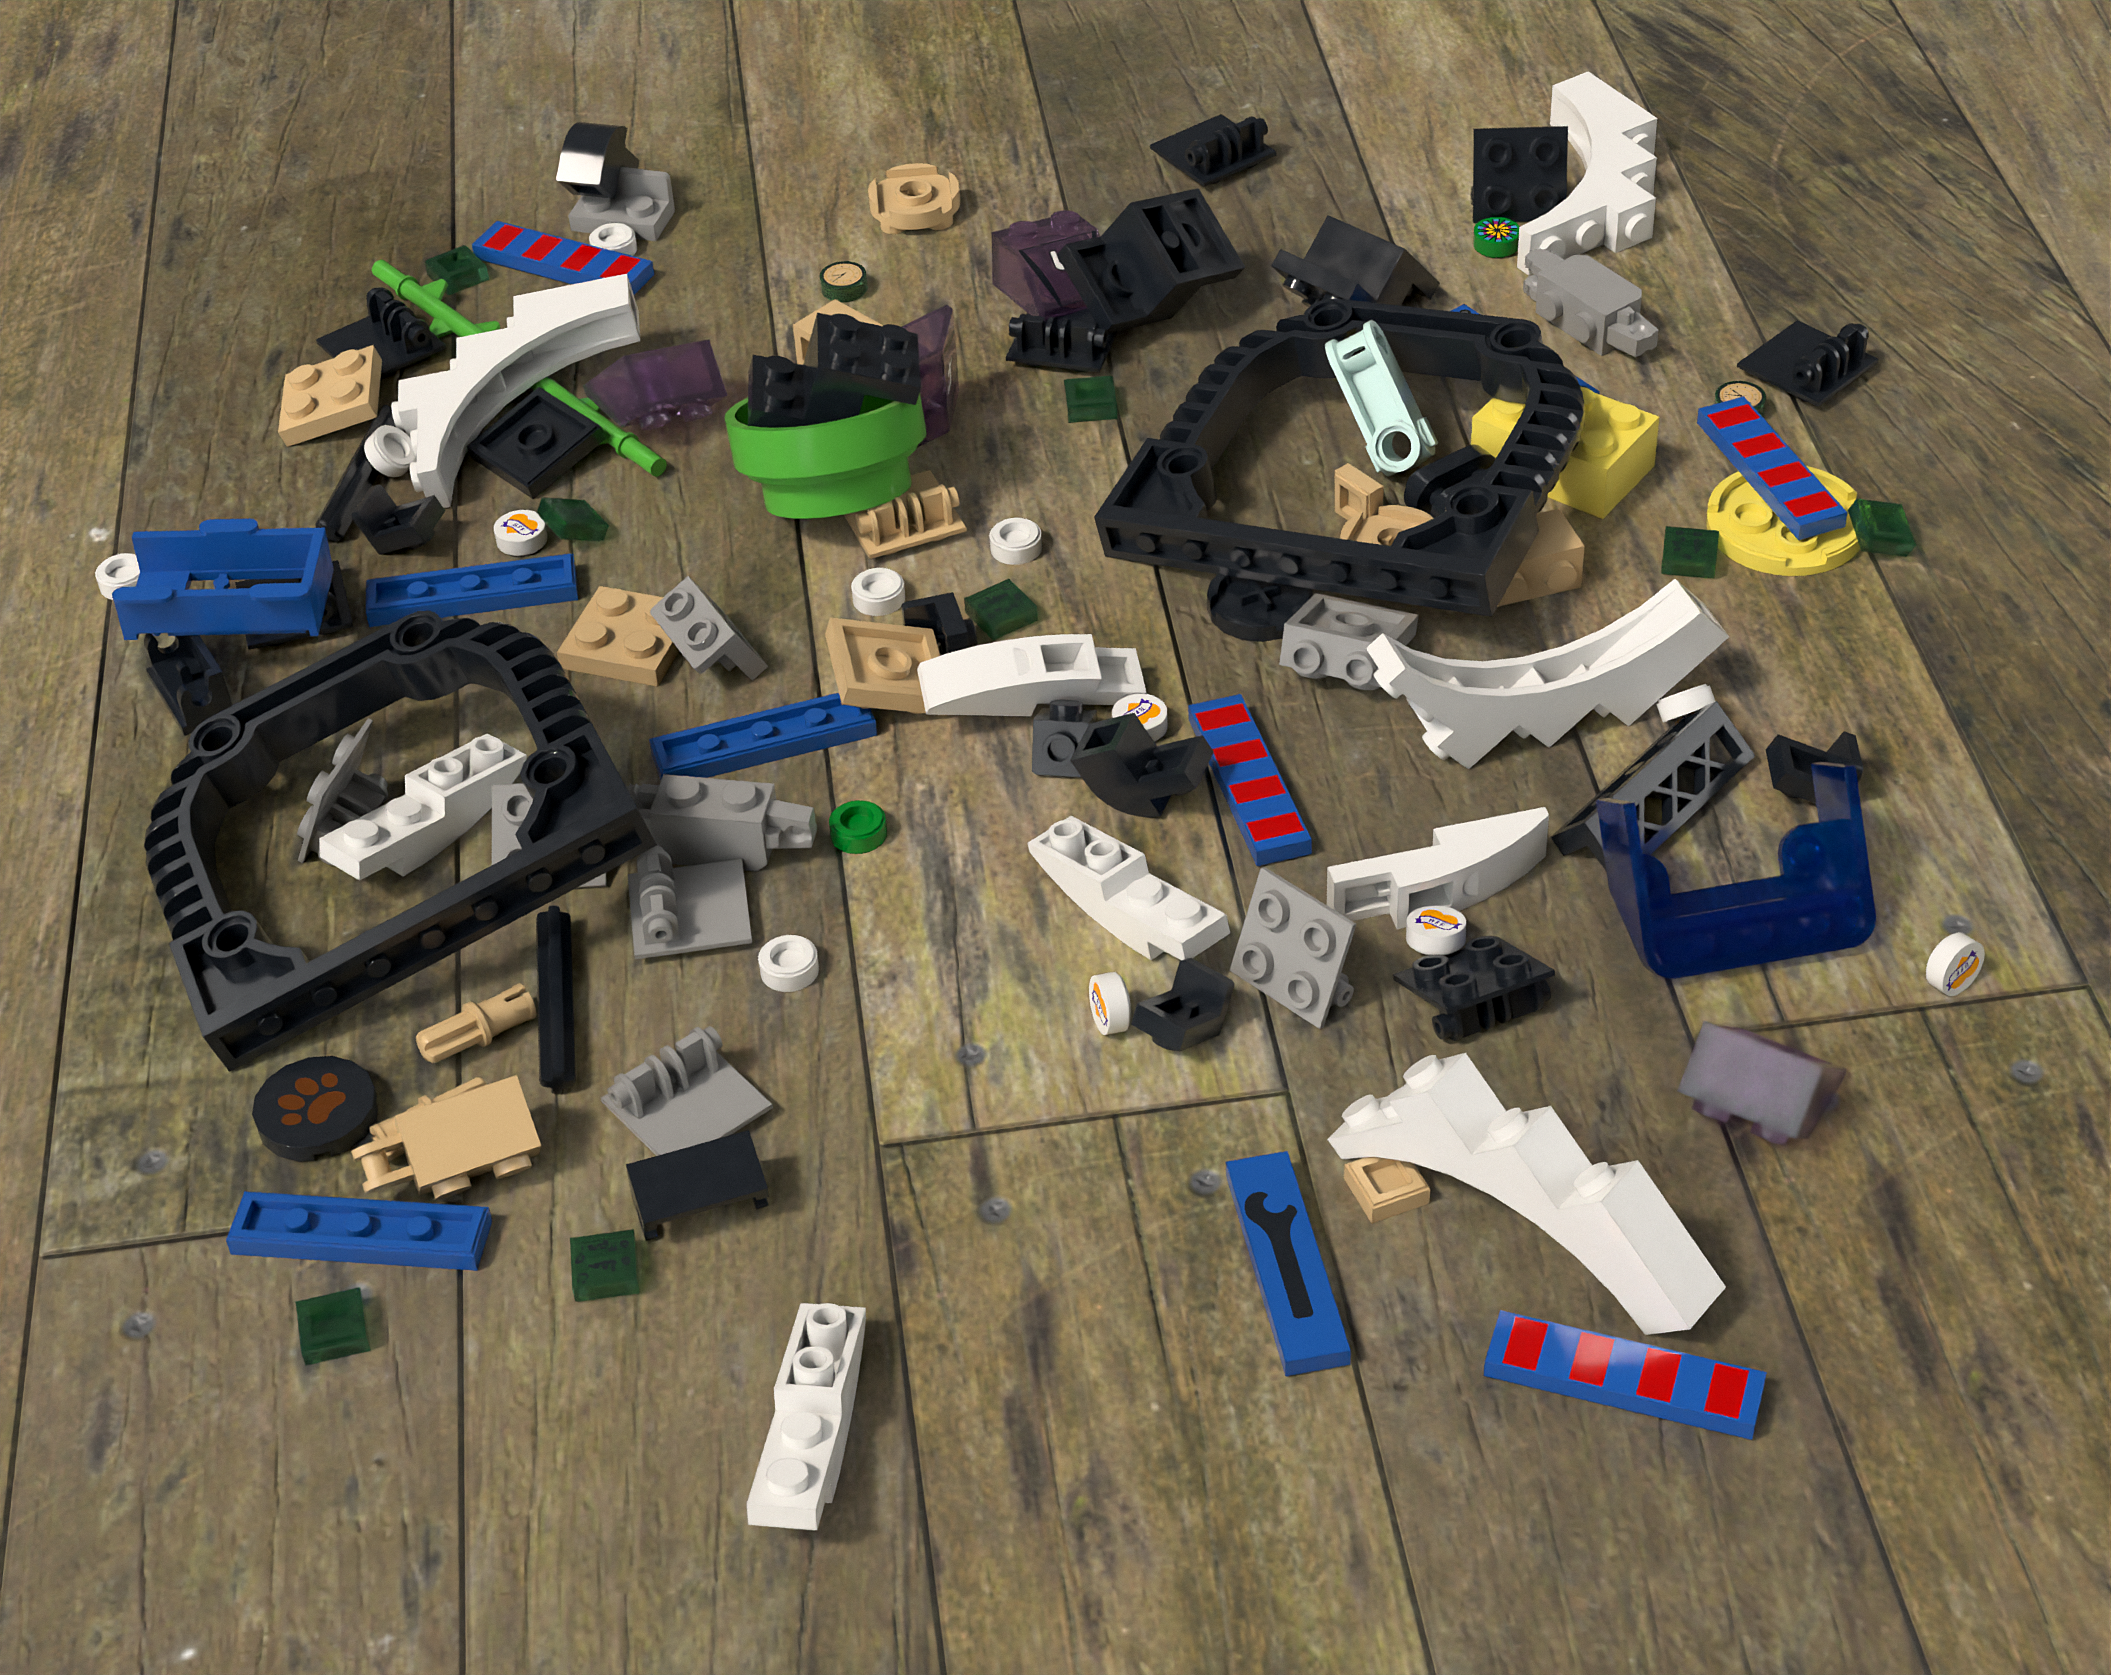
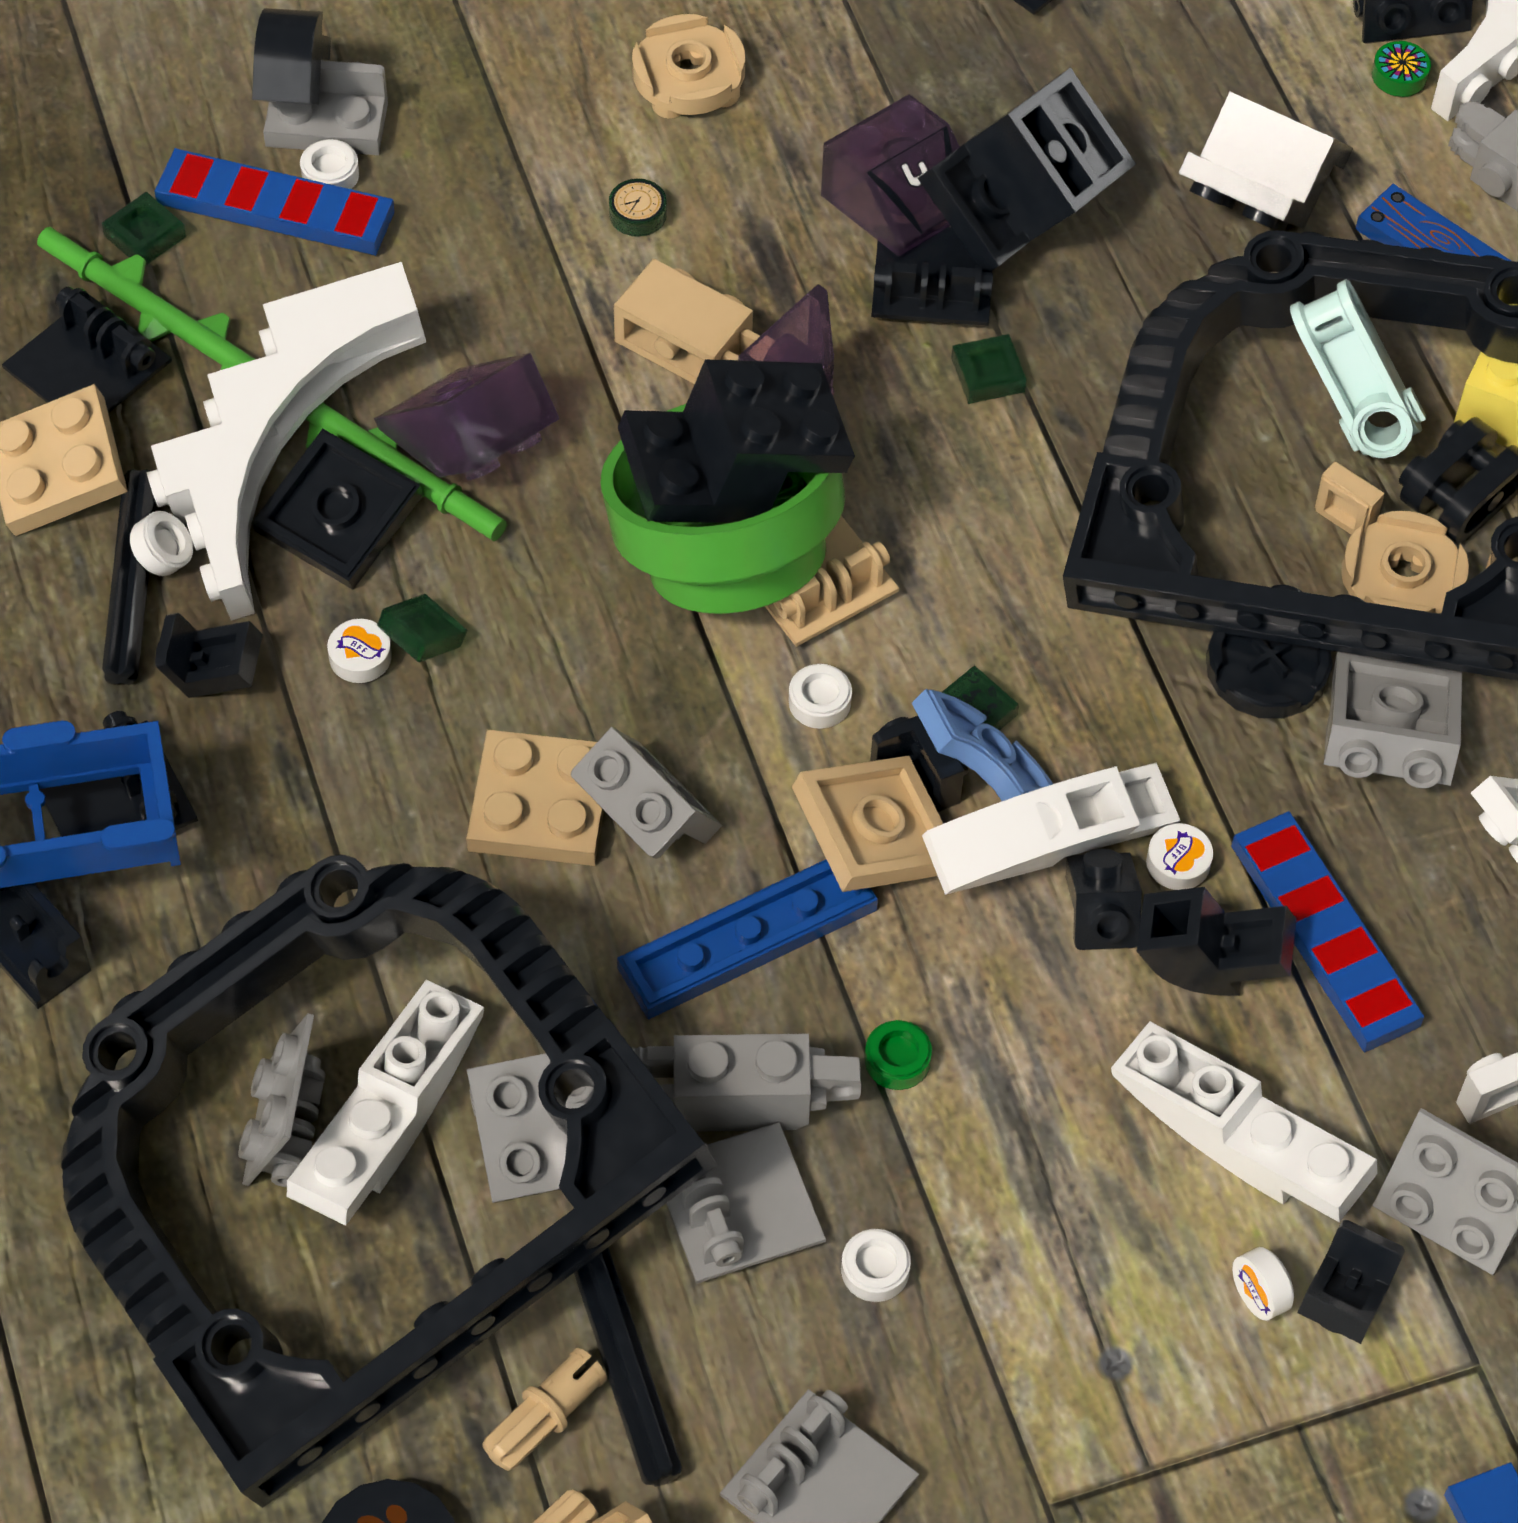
camera: 15 degrees left, 15 degrees up
(473, 589) = (325, 746): blue tile -> none
(977, 608) = (961, 734): none -> medium blue tile
(1015, 541) = (960, 600): white tile -> none

